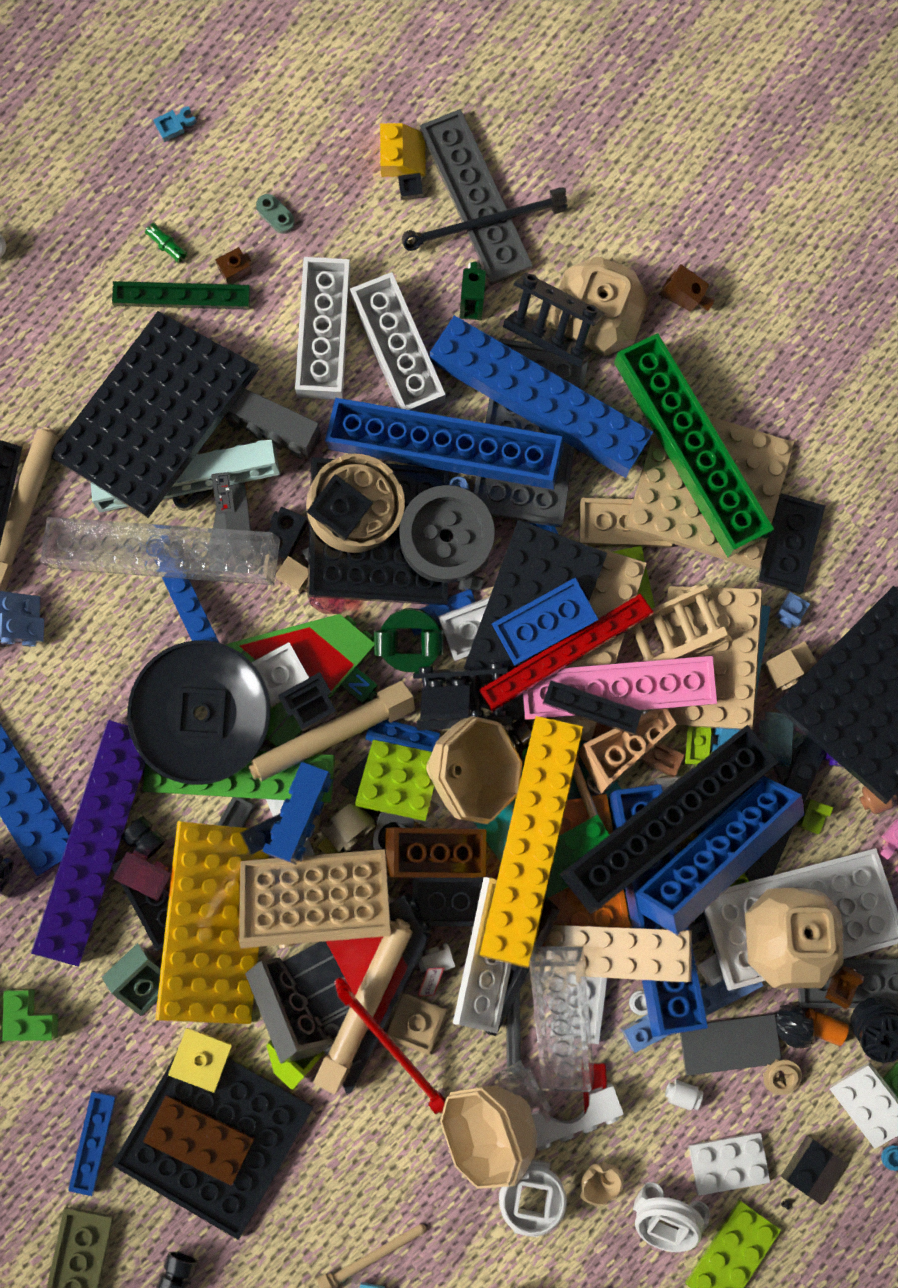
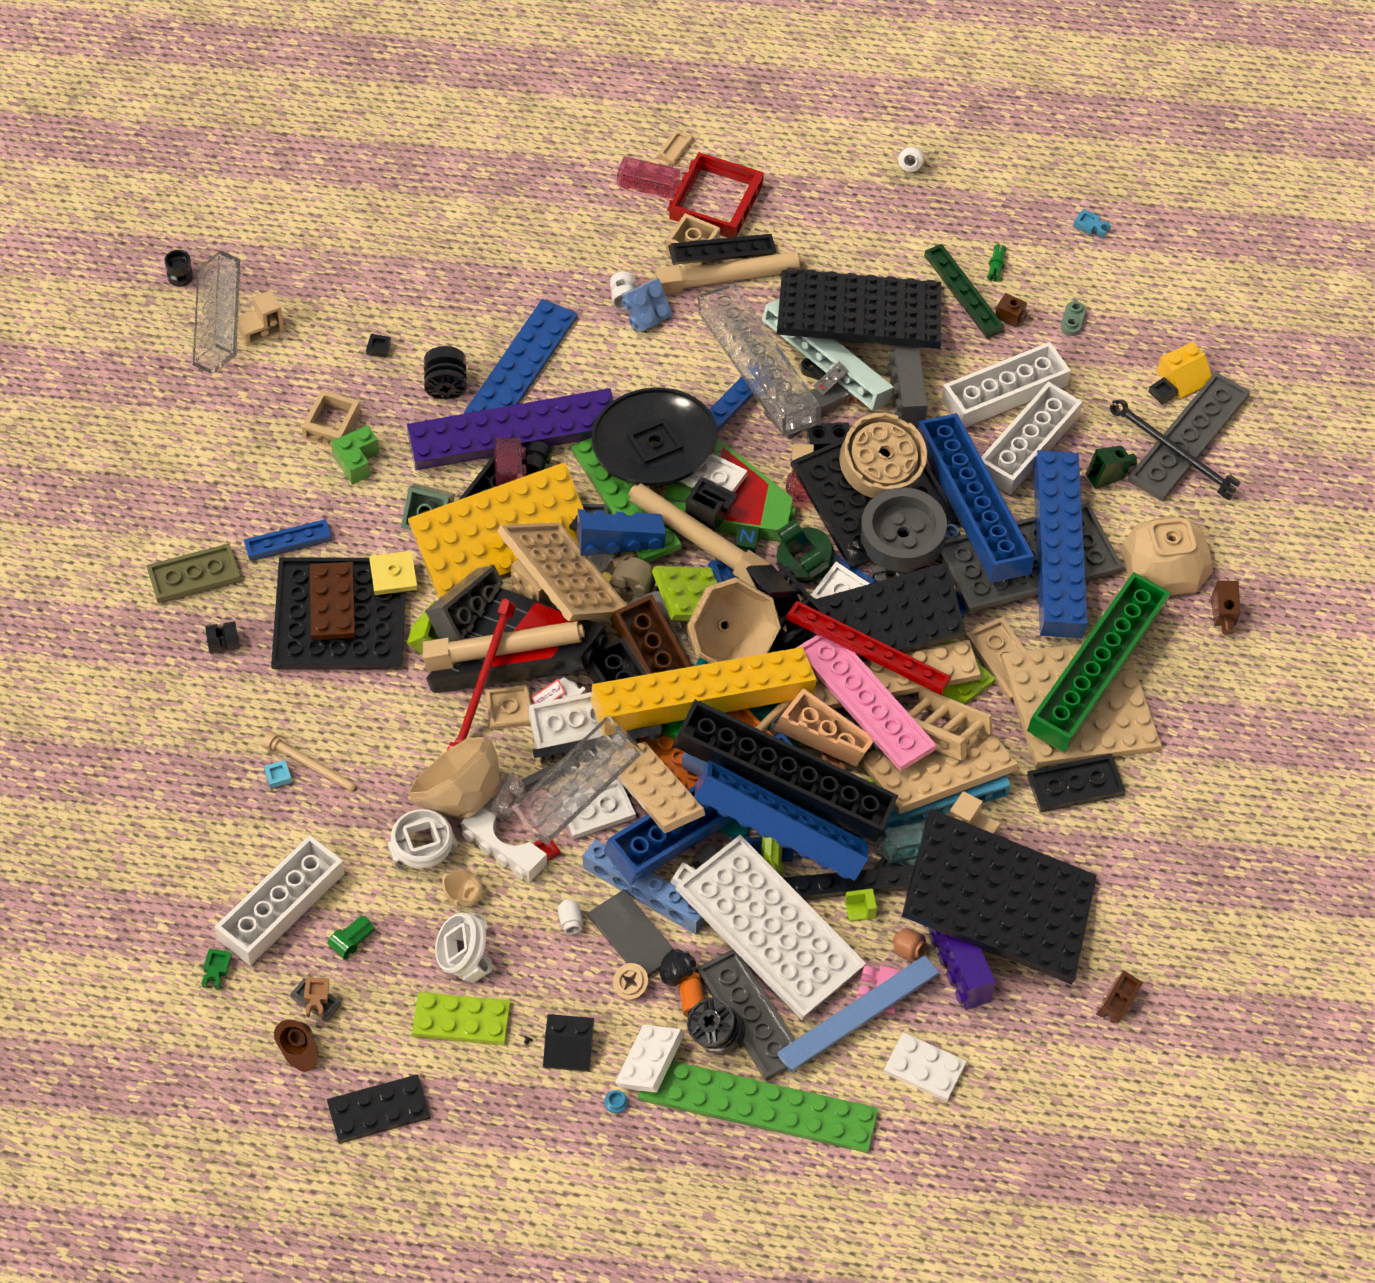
camera: 65 degrees right, 25 degrees down
(339, 507) = (870, 438): black tile -> none
(545, 337) = (1112, 518): black fence -> none
(545, 621) = (883, 619): blue plate -> none
(592, 707) = (836, 681): black plate -> none
(729, 1163) = (535, 980): white plate -> none
(778, 942) = (749, 927): tan rock -> none
(792, 611) = (1020, 811): medium blue bracket -> none
(843, 986) = (733, 983): reddish brown bracket -> none

